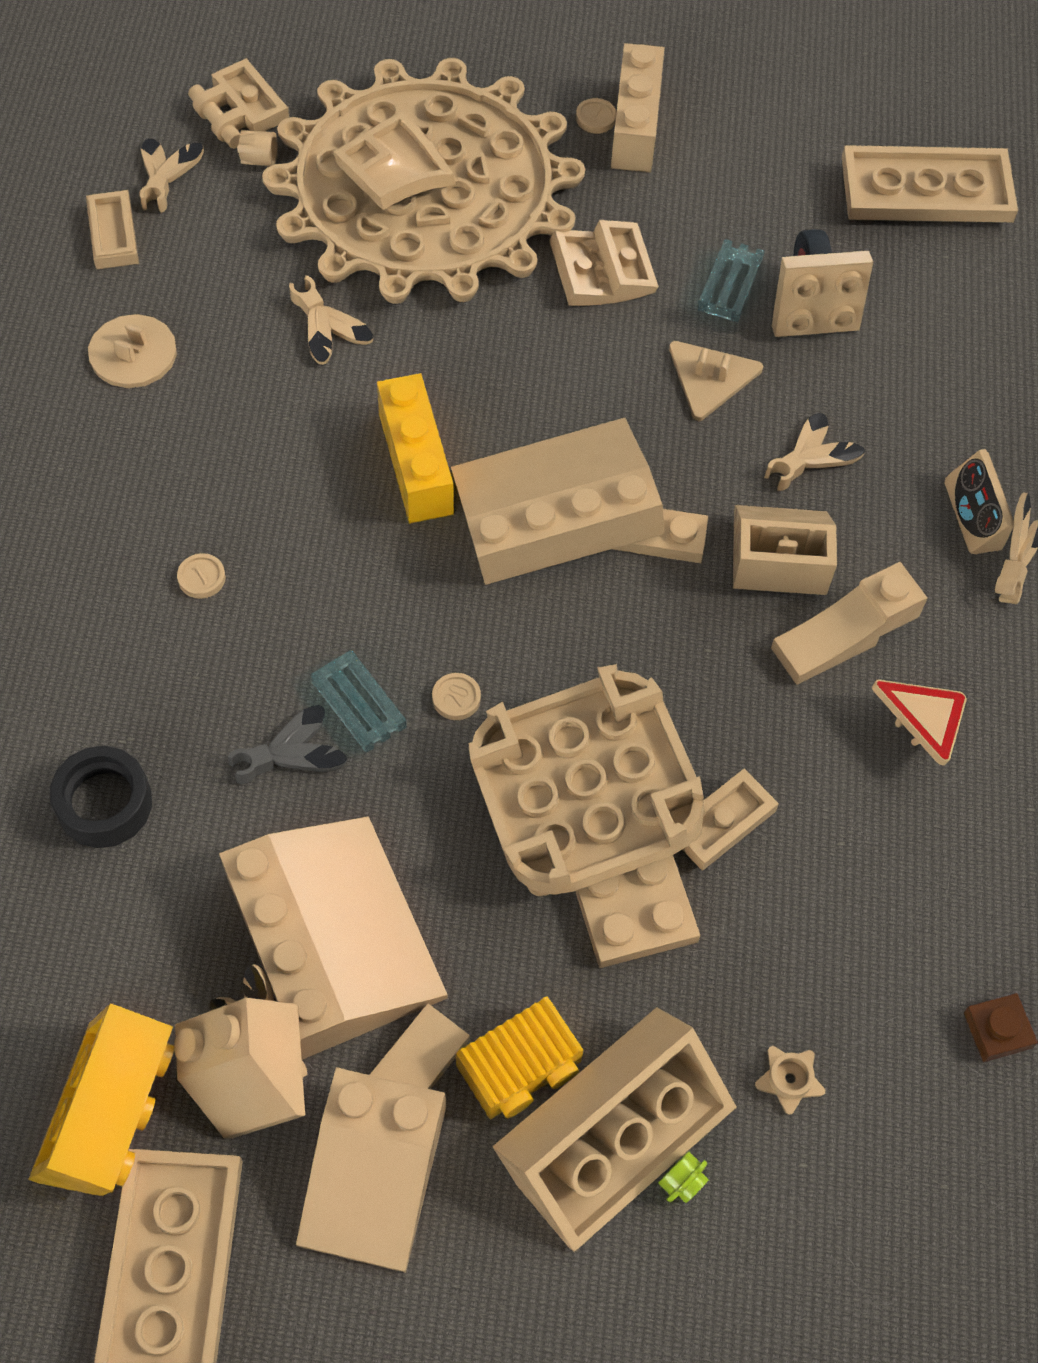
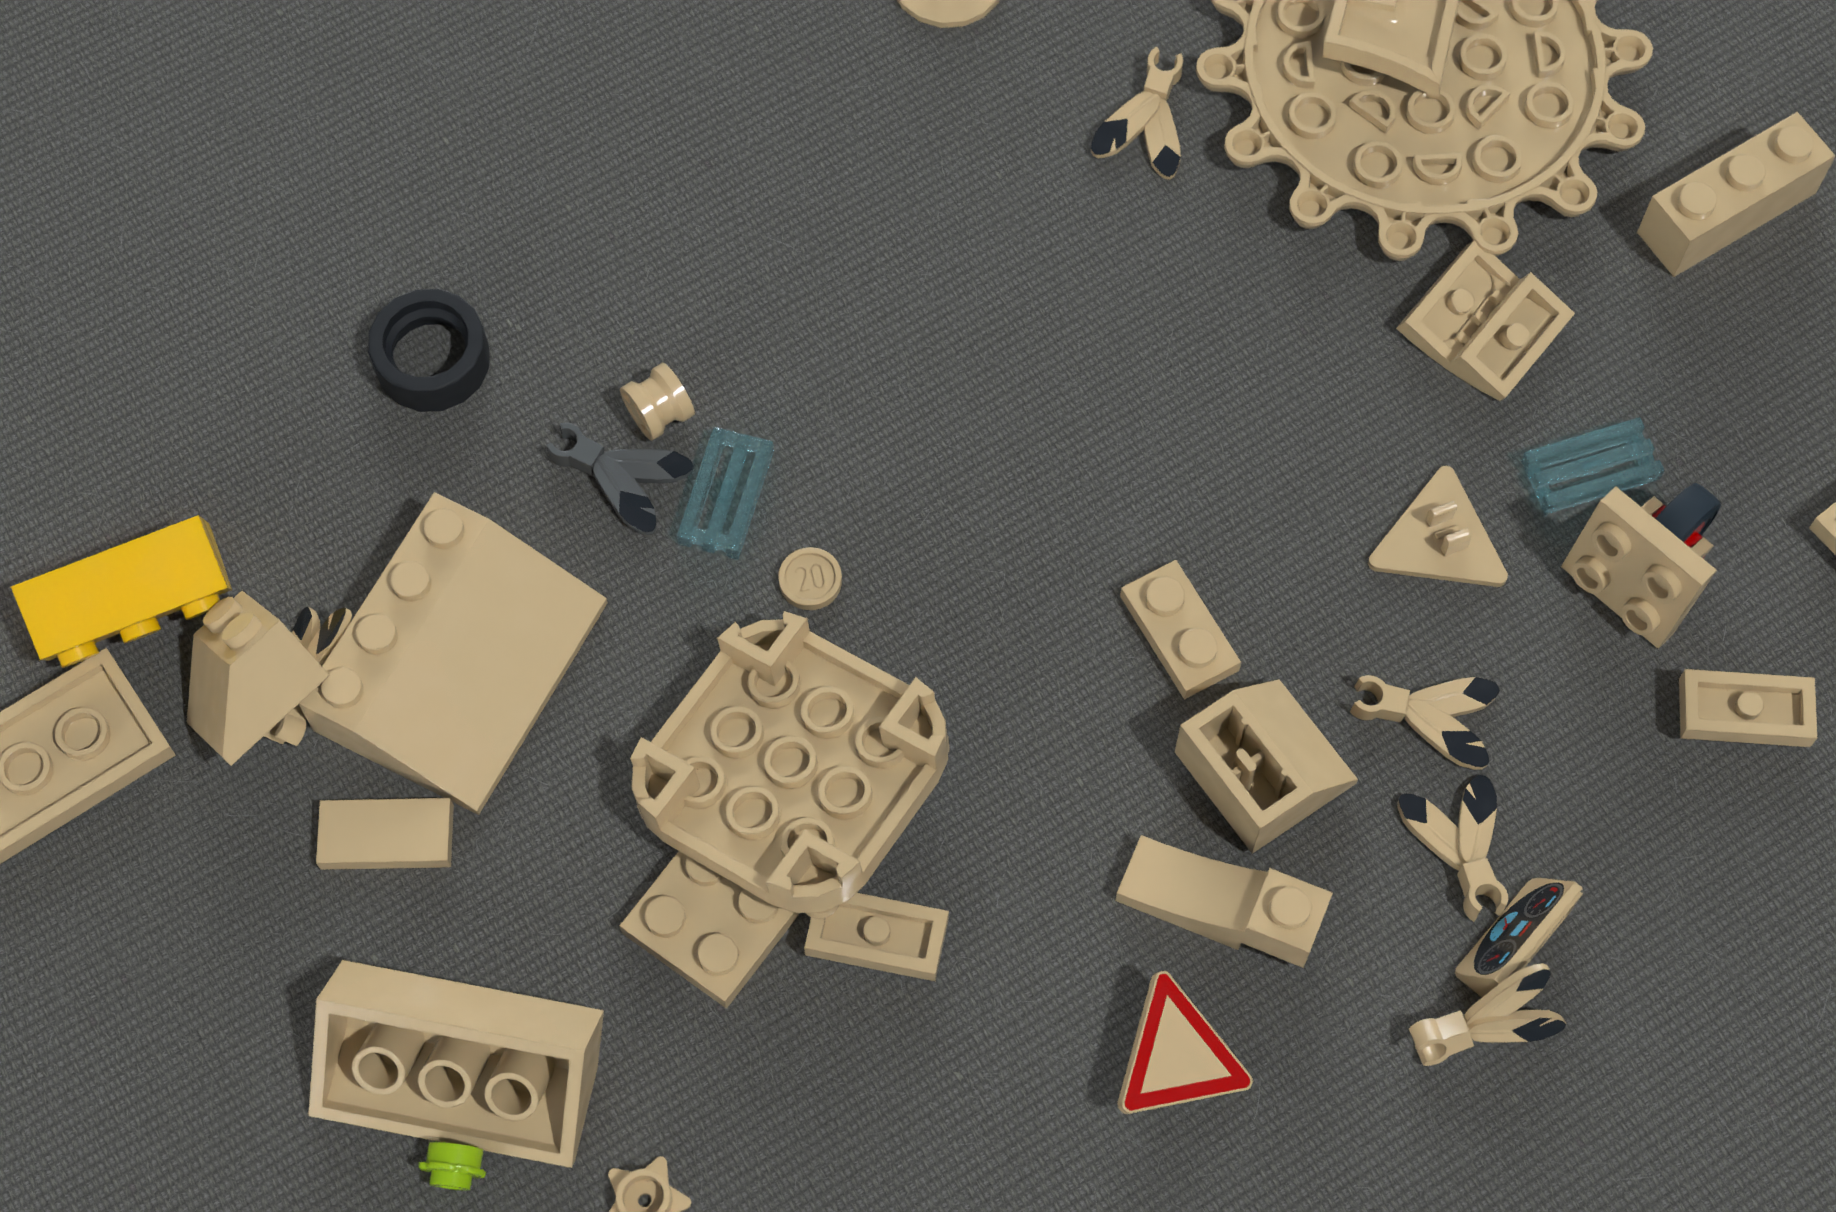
camera: 55 degrees right, 5 degrees up
(201, 576) = (744, 245): tan piece -> none
(266, 691) = (657, 401): none -> tan wheel
(371, 1169) = (246, 869): tan slope -> none
(415, 448) = (1056, 317): yellow brick -> none
(520, 1059) = (454, 923): yellow brick -> none
(558, 500) = (1116, 496): tan slope -> none
(596, 115) = (1690, 154): tan piece -> none
(901, 493) = (1464, 845): none -> tan piece
(930, 314) = (1747, 708): none -> tan plate

